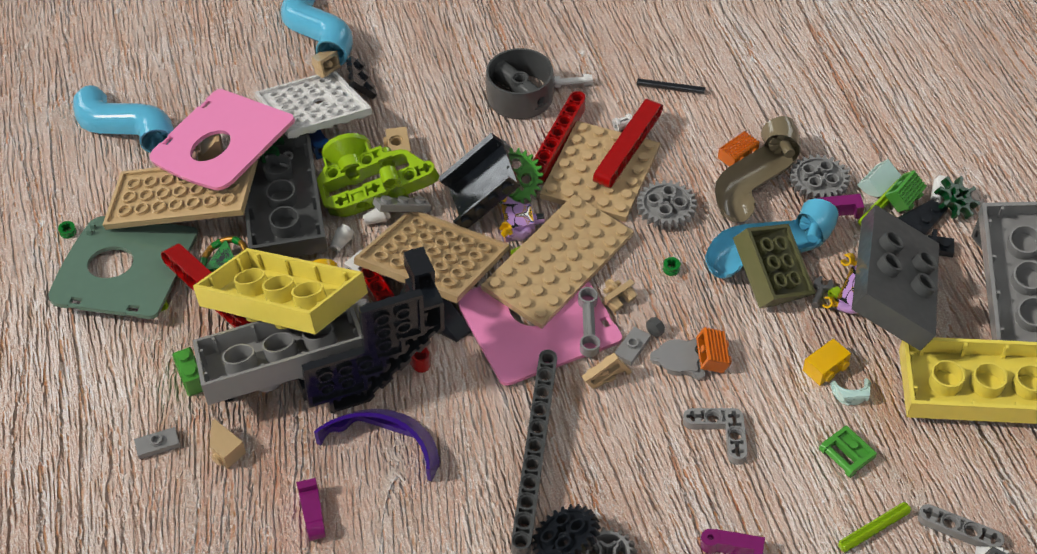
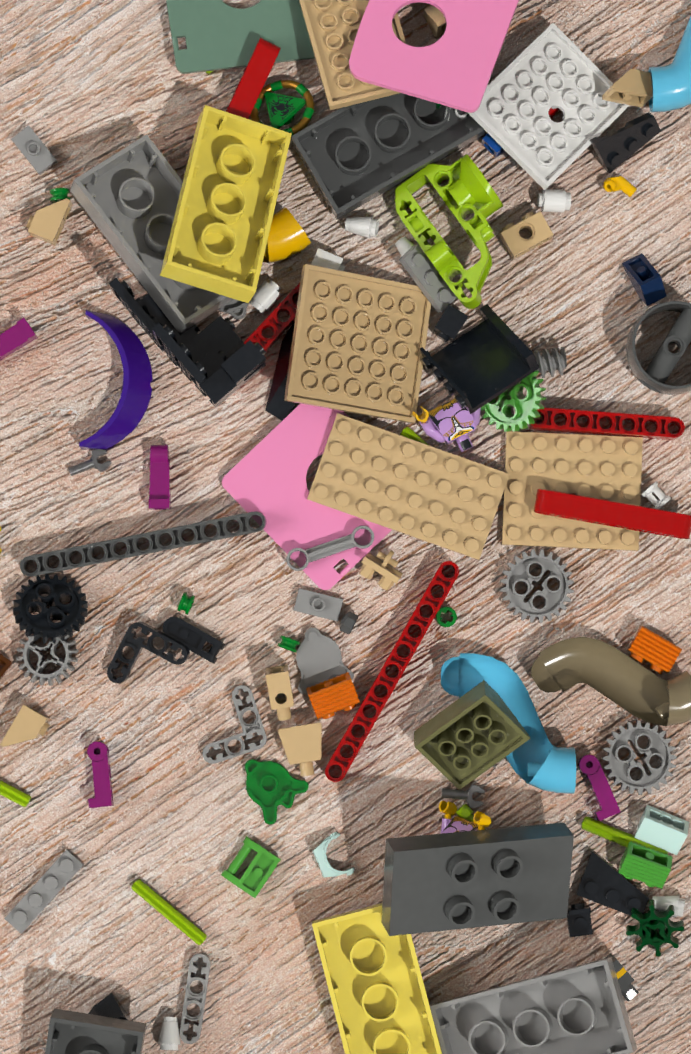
camera: 65 degrees right, 35 degrees up
(188, 370) = (127, 135): bright green brick -> none
(204, 432) = (59, 194): none -> green bush
(379, 125) = (554, 200): none -> white brick
(387, 91) = (617, 184): none -> yellow arm
(442, 204) = (450, 324): none -> black brick
(447, 476) = (92, 463): none -> flat silver bar
(463, 91) = (645, 279): none -> dark blue slope
(482, 426) = (159, 478): none -> magenta leg
(598, 435) = (186, 603): none -> green bush
(606, 371) = (270, 590): tan wing -> none
(623, 480) = (138, 644): none -> black beam
(630, 440) = (192, 638): none -> black plate
(658, 372) = (288, 643): none -> green bush
(696, 384) = (279, 682): none -> tan torso
(707, 310) = (400, 663): none -> red beam
(749, 384) = (302, 746): none -> tan torso
(779, 419) = (272, 786): none -> green tile
(827, 362) = (360, 823): yellow brick -> none

